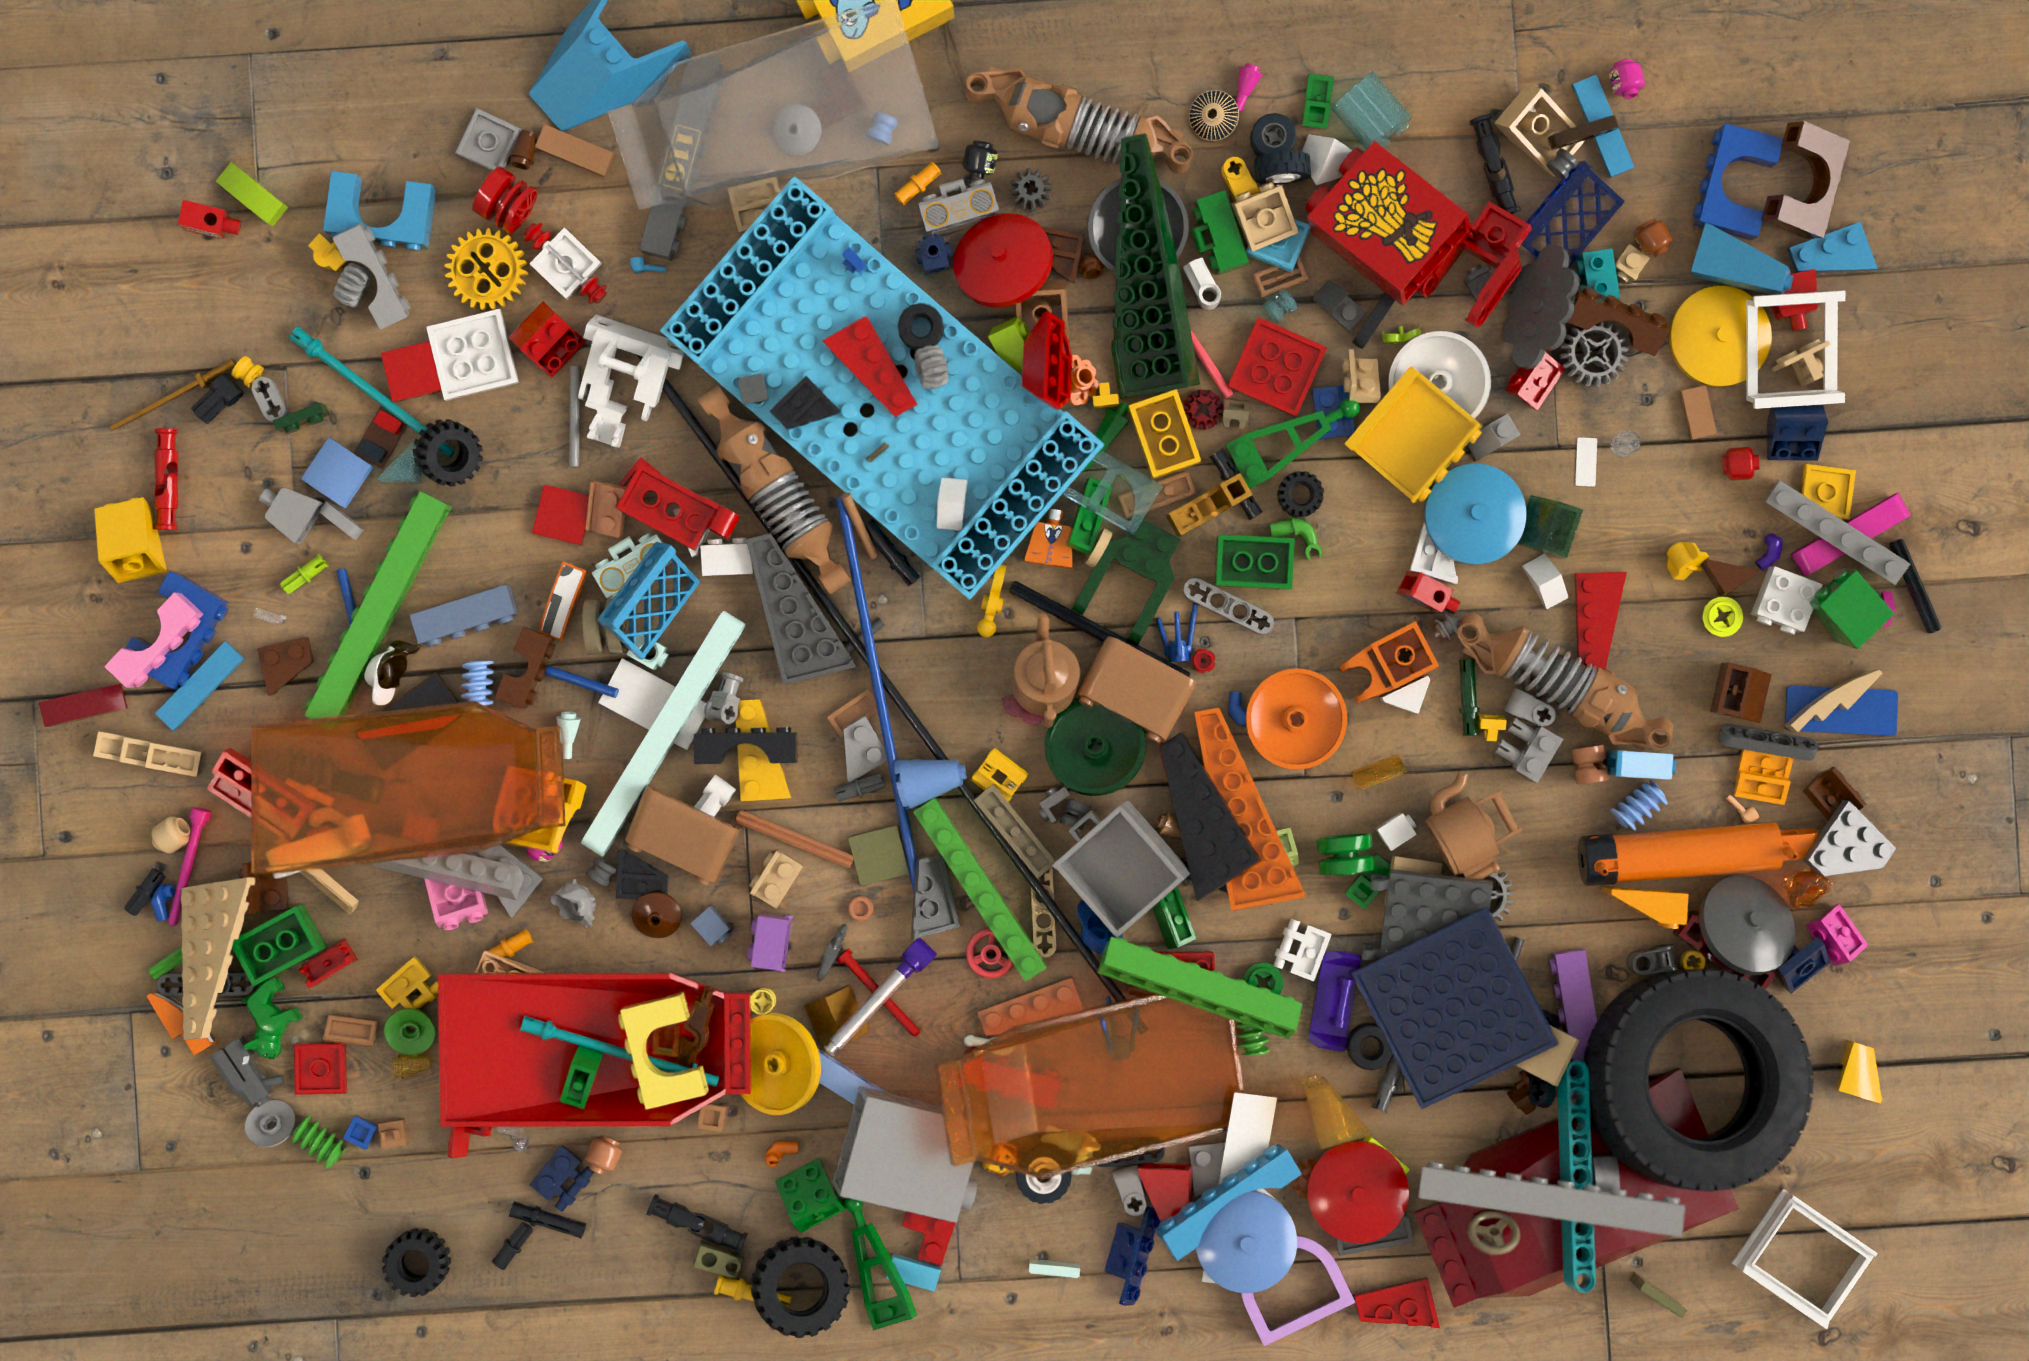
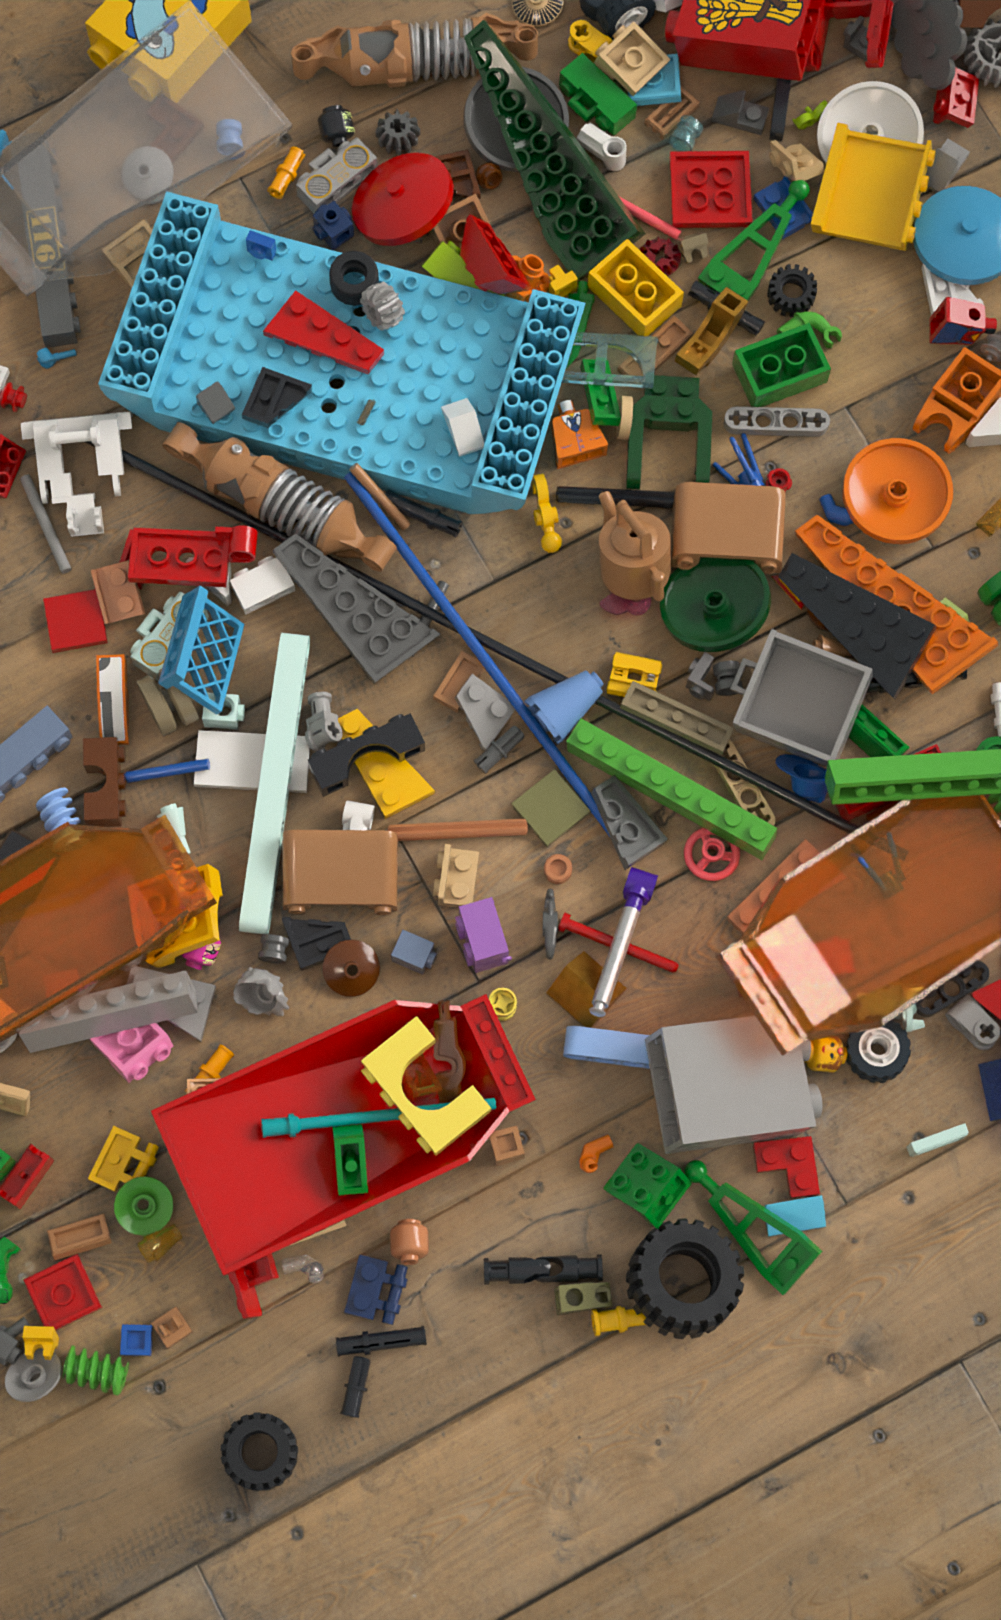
camera: 30 degrees left, 15 degrees down
(283, 1096) = (40, 1337): none -> yellow tile
(782, 1065) = (556, 1053): yellow dish -> none

